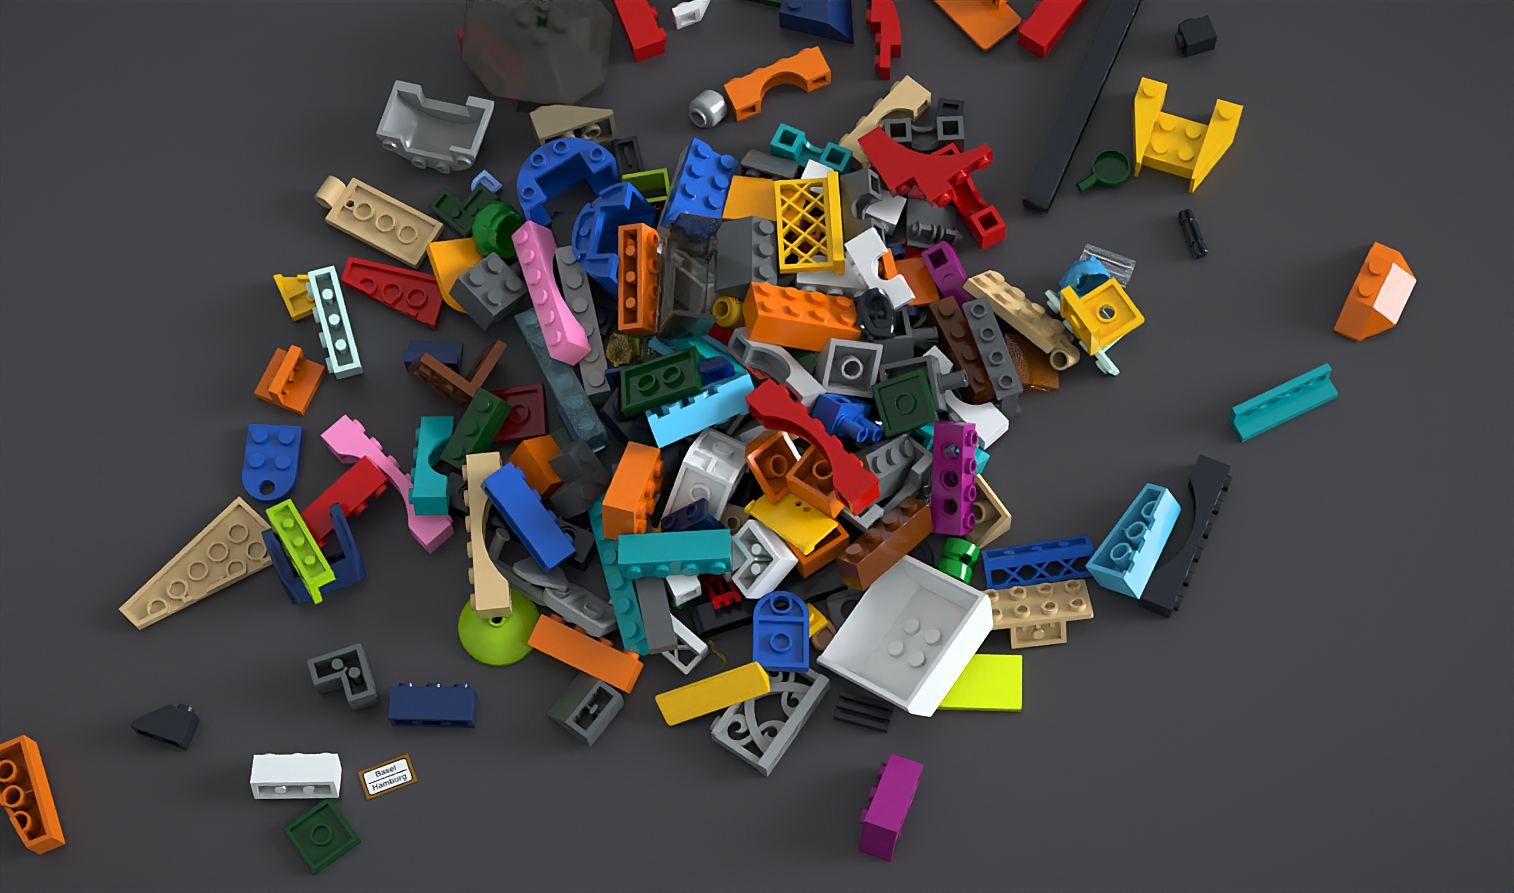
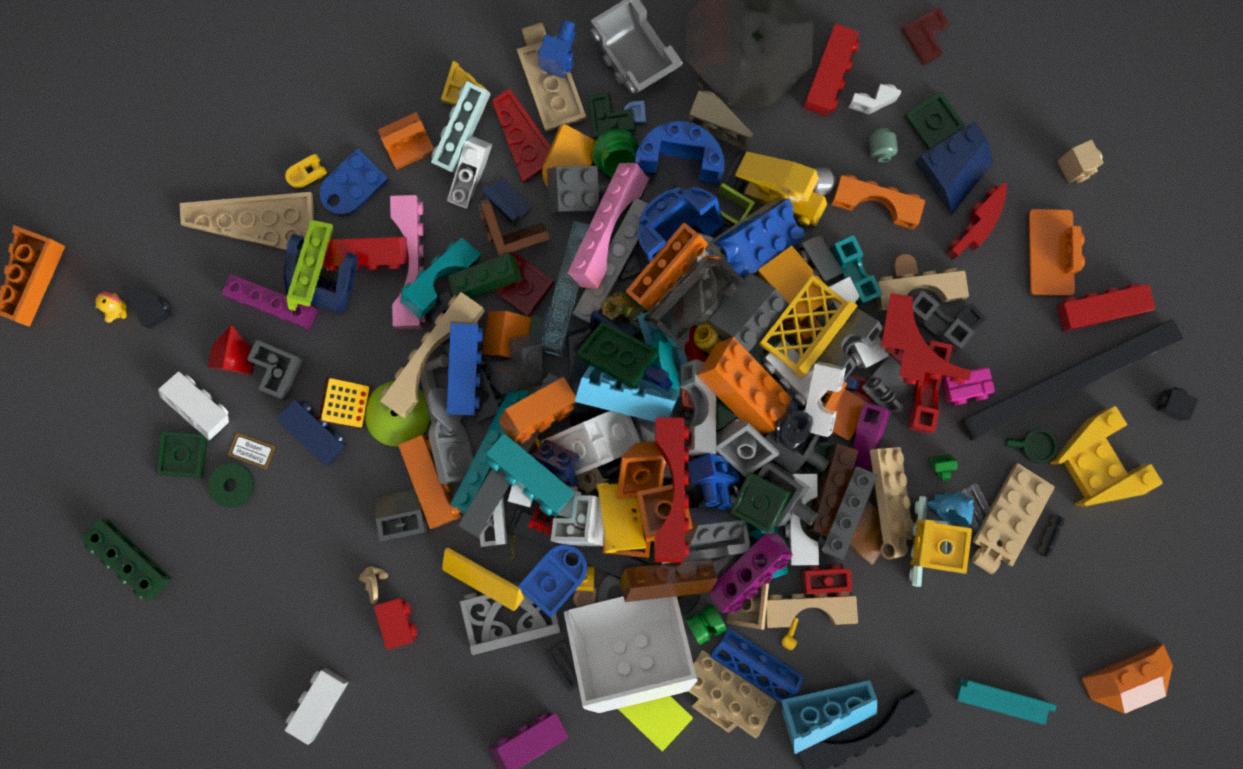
camera: 30 degrees right, 15 degrees up
(132, 755) = (111, 306): none -> yellow animal
(213, 493) = (299, 177): none -> yellow plate
(286, 624) = (268, 302): none -> magenta brick
(289, 702) = (231, 353): none -> red slope
(369, 185) = (555, 52): none -> blue brick
(376, 360) = (469, 171): none -> white slope
(385, 809) = (219, 478): none -> dark green tile
(440, 653) = (344, 403): none -> yellow tile
(605, 791) = (368, 577): none -> tan piece
(668, 805) = (396, 623): none -> red brick
(672, 124) = (783, 179): none -> yellow wedge
(737, 32) = (883, 144): none -> sand green head
(850, 115) = (905, 265): none -> medium nougat tile
(999, 175) = (977, 386): none -> dark pink brick
(1029, 432) = (826, 580): none -> red brick
(1042, 253) = (943, 465): none -> green tile
(1046, 517) = (788, 641): none -> yellow hand
(1062, 450) = (839, 608): none -> tan arch
(1143, 248) = (1011, 518): none -> tan hinge

